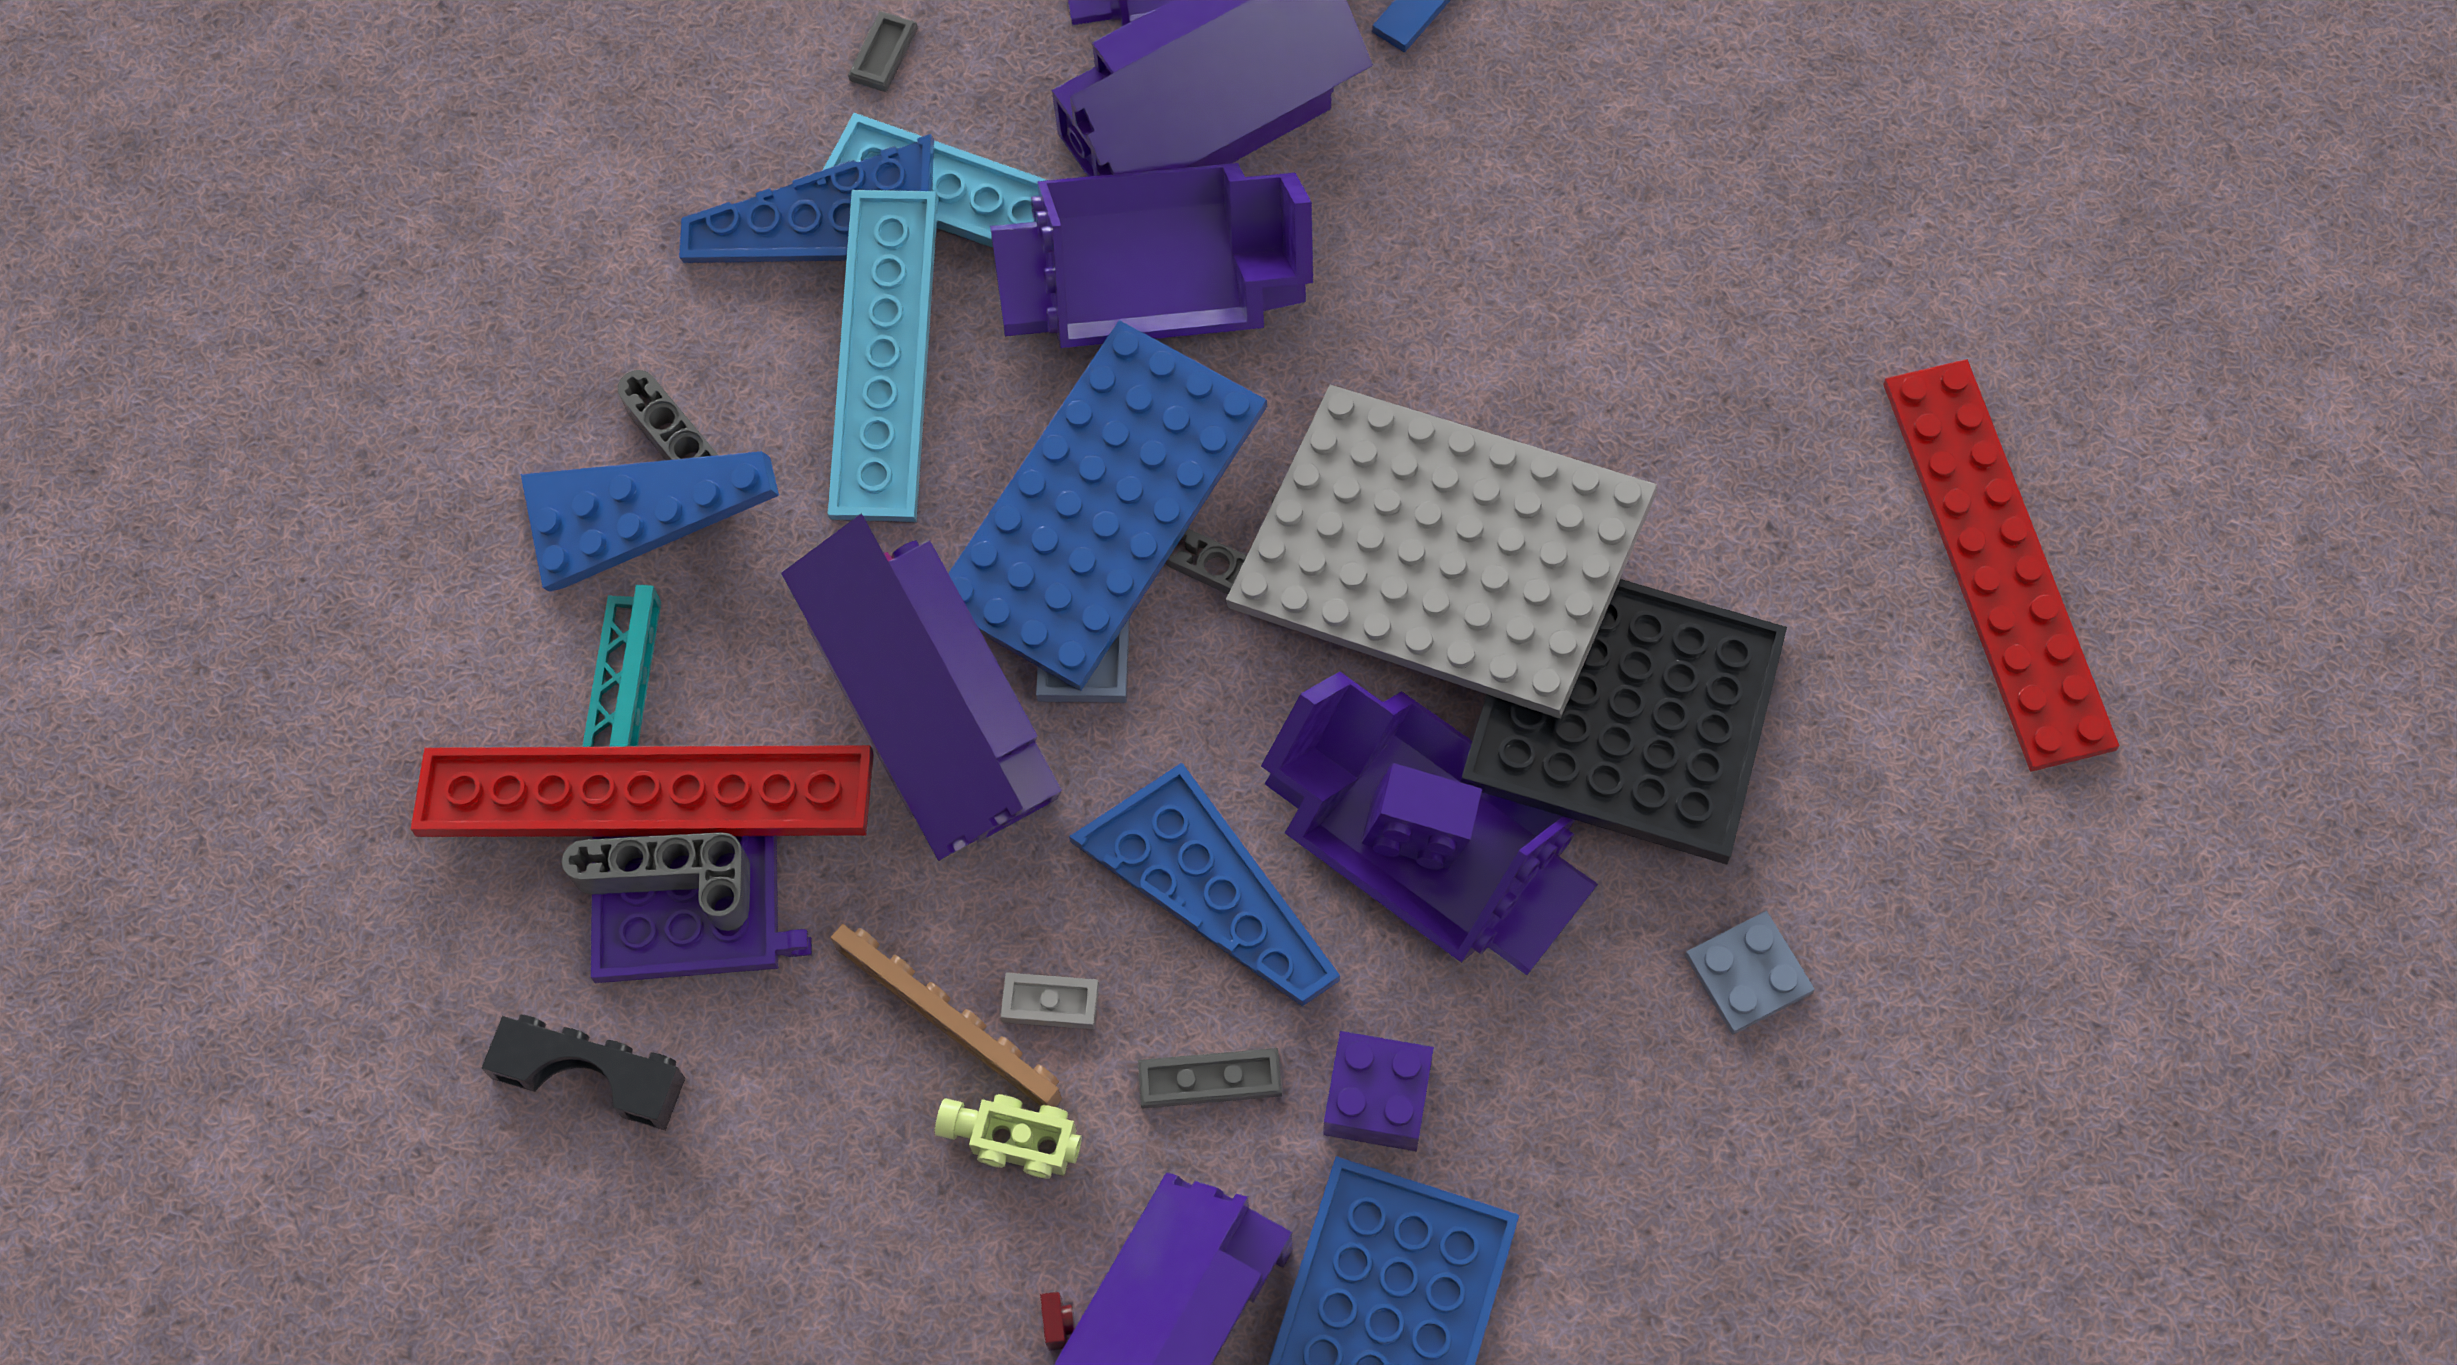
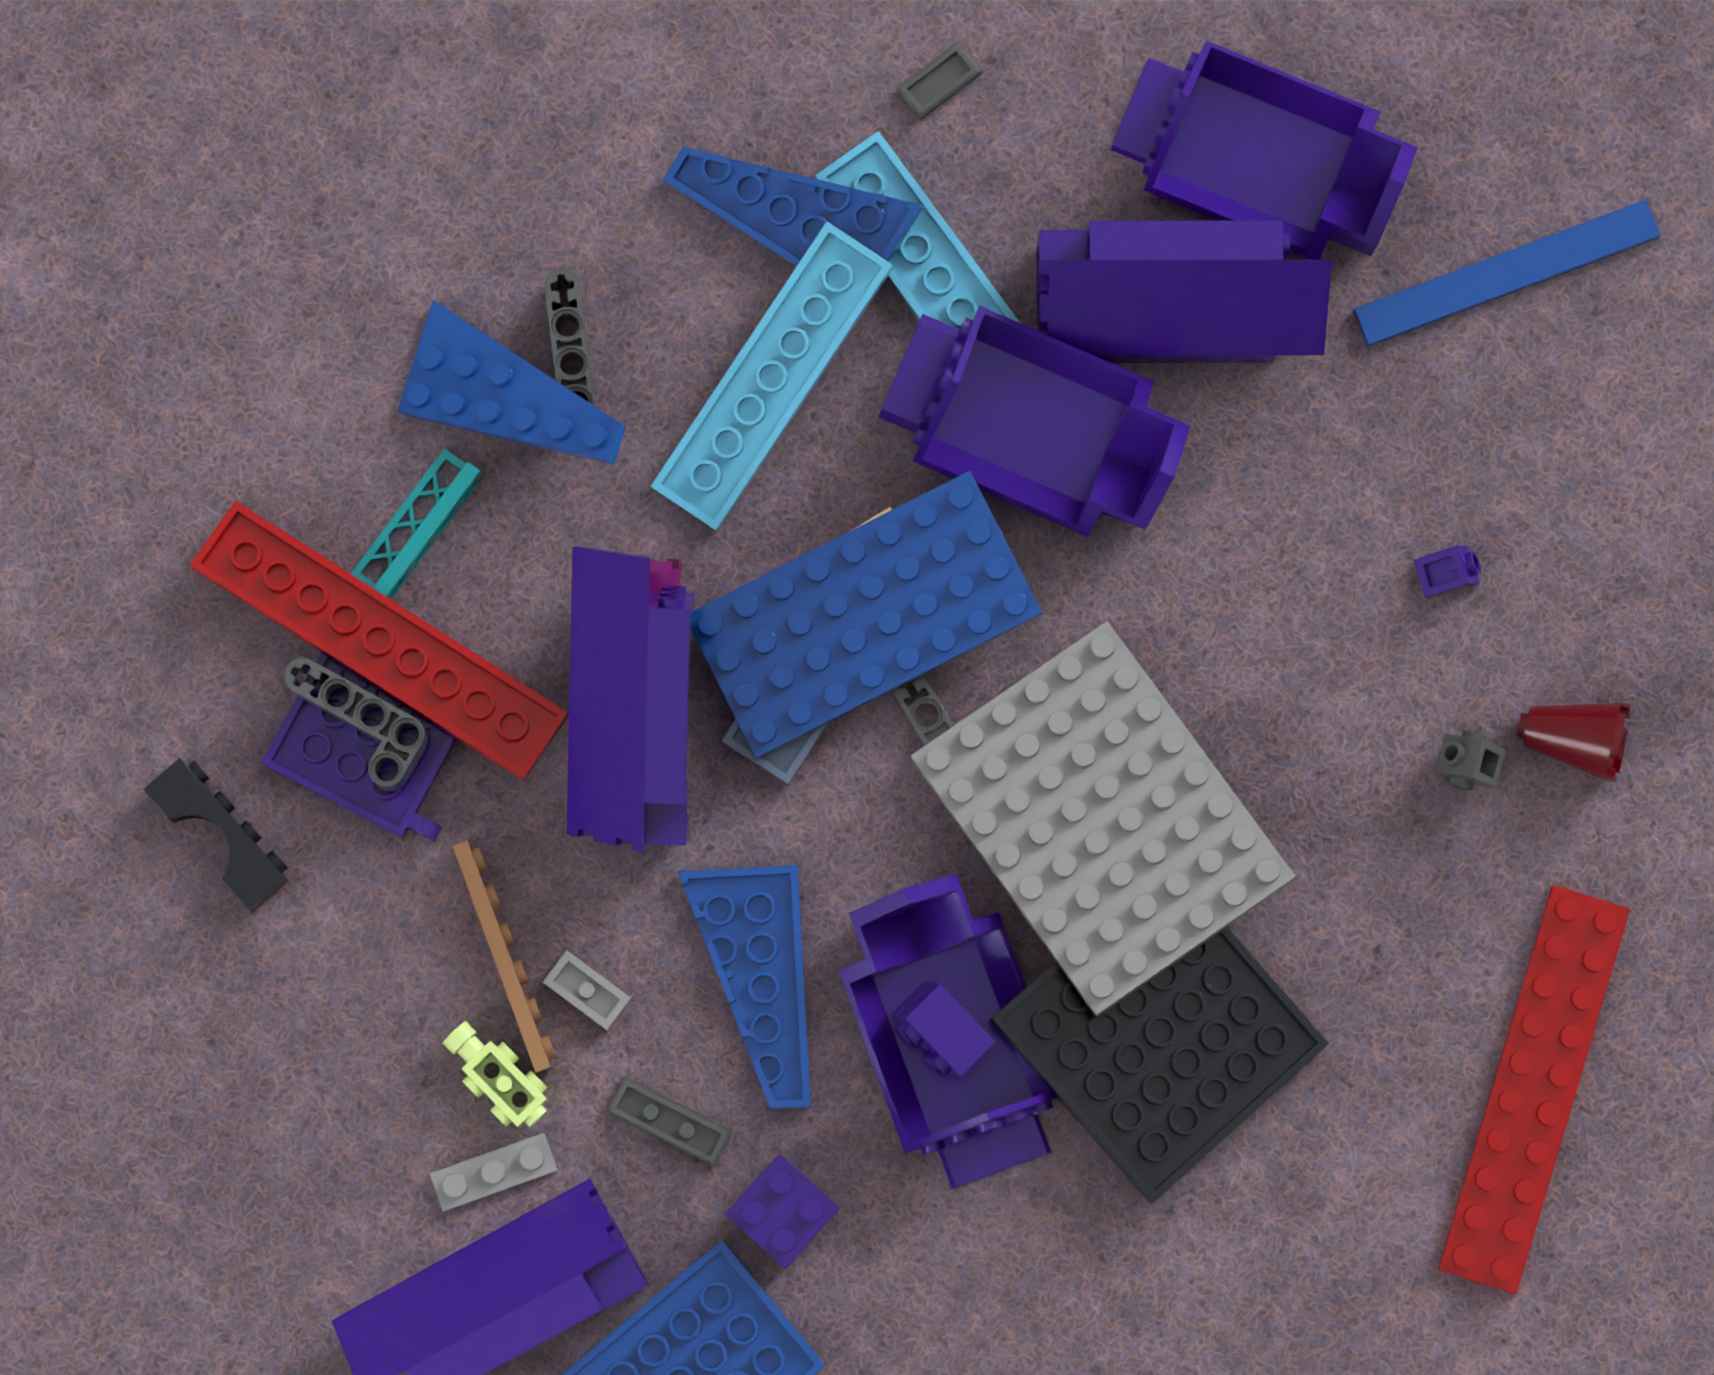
camera: 25 degrees right, 15 degrees up
(1057, 1320) = (449, 1234): dark red plate -> none
(1064, 1234) = (493, 1172): none -> light grey plate
(1602, 180) = (1448, 570): none -> dark purple bracket
(1737, 314) = (1470, 760): none -> dark grey brick
(1749, 972) = (1116, 1290): sand blue plate -> none
(1818, 239) = (1579, 735): none -> dark red cone

